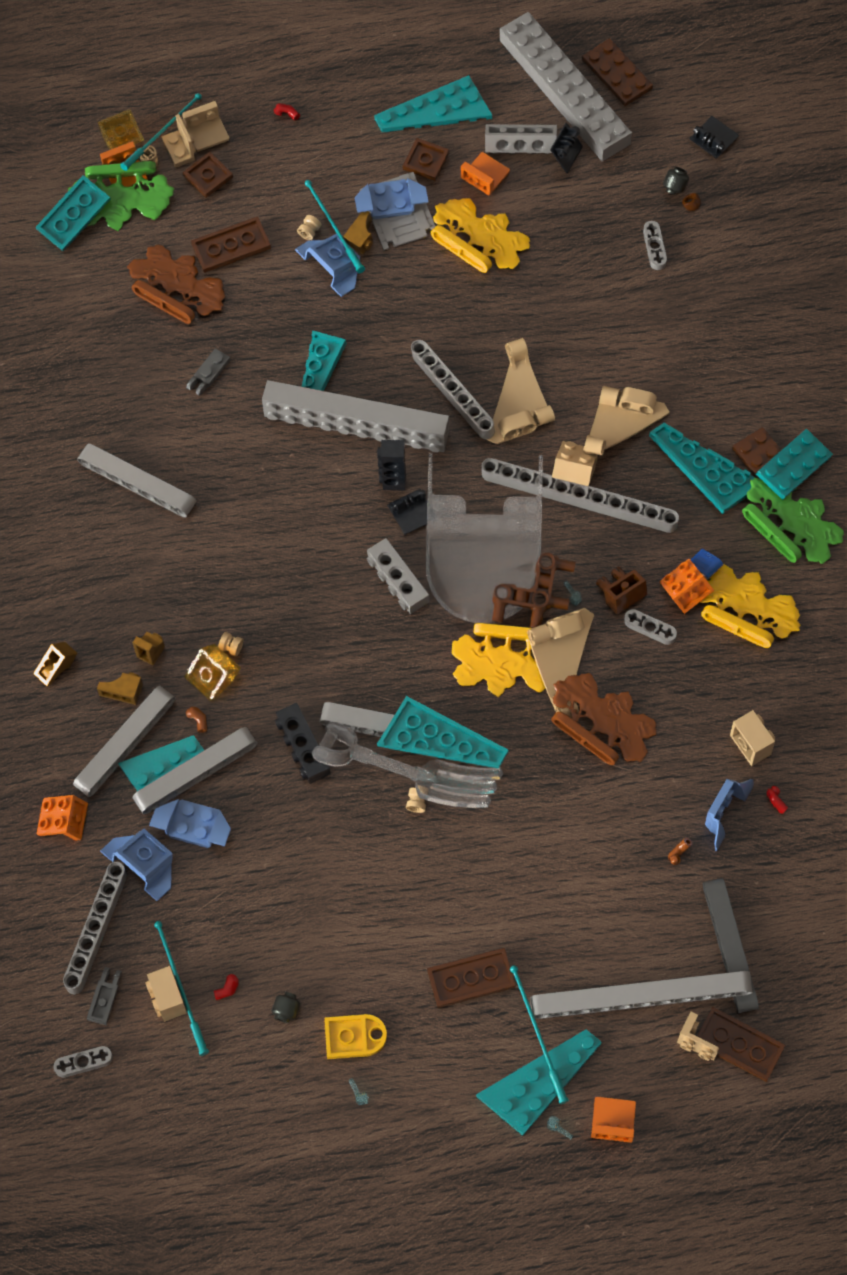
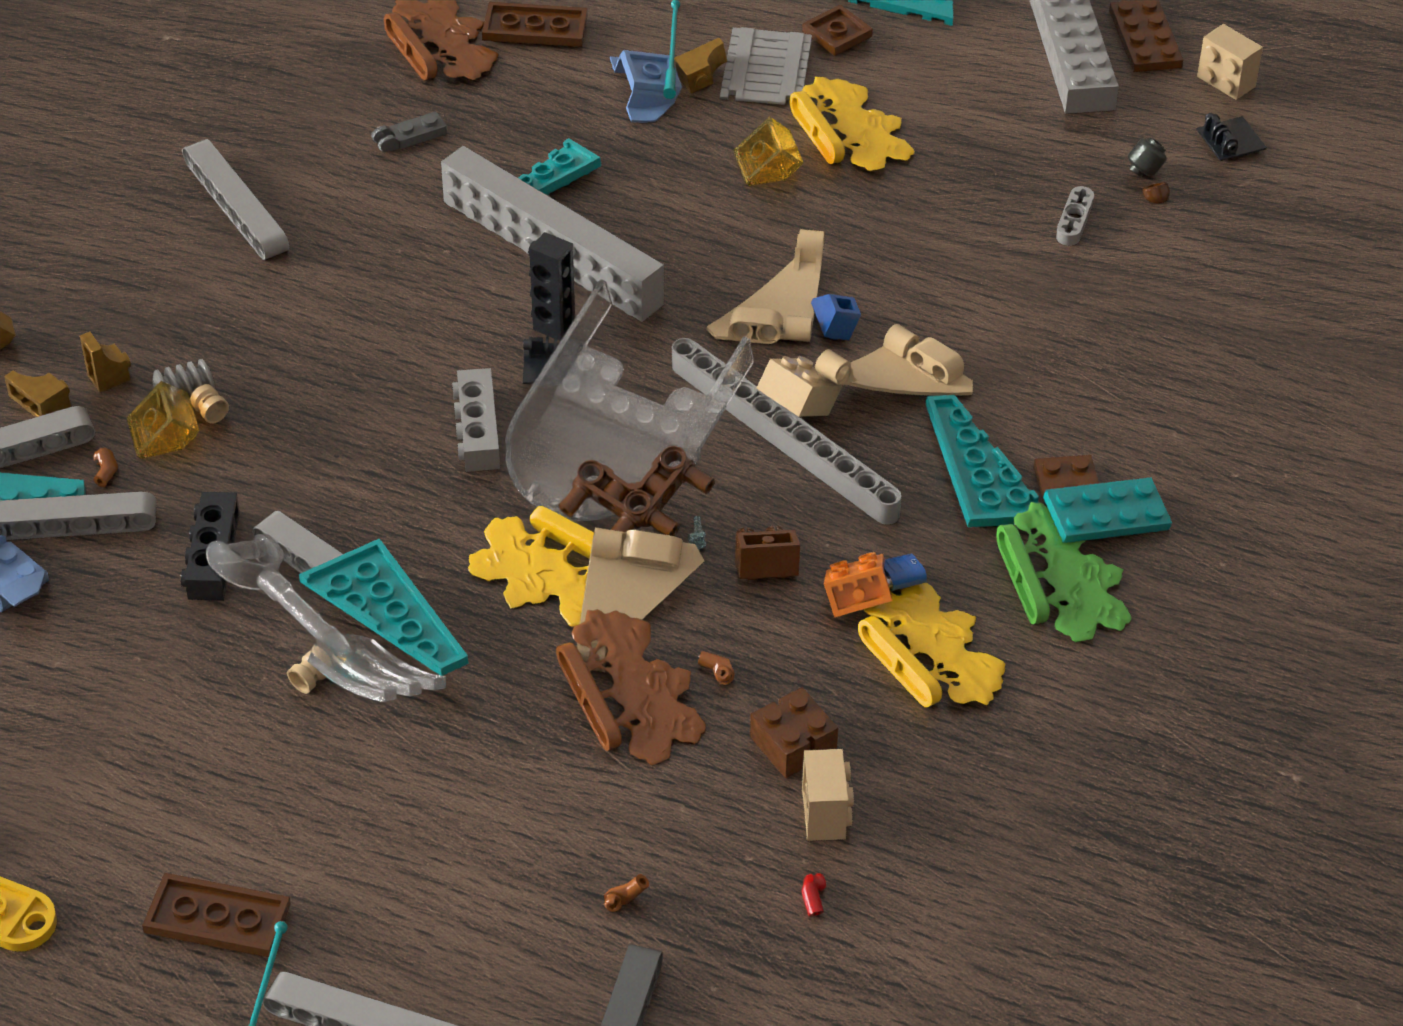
camera: 25 degrees right, 20 degrees down
(203, 635) = (188, 379): none -> light grey piece
(309, 227) = (643, 40): tan wheel -> none
(390, 198) = (758, 45): medium blue piece -> none
(445, 286) = (768, 154): none -> clear yellow slope
(456, 396) = (698, 257): light grey beam -> none
(484, 173) = (900, 69): orange bracket -> none
(519, 138) = (1007, 52): light grey brick -> none
(561, 395) = (836, 315): none -> blue slope
(567, 146) = (1024, 74): black hinge -> none
(635, 625) = (778, 626): light grey beam -> none
(641, 678) = (720, 665): none -> dark orange arm
(686, 78) = (1229, 61): none -> tan brick
(708, 702) = (787, 728): none -> reddish brown piece
(724, 797) = (729, 851): medium blue piece -> none

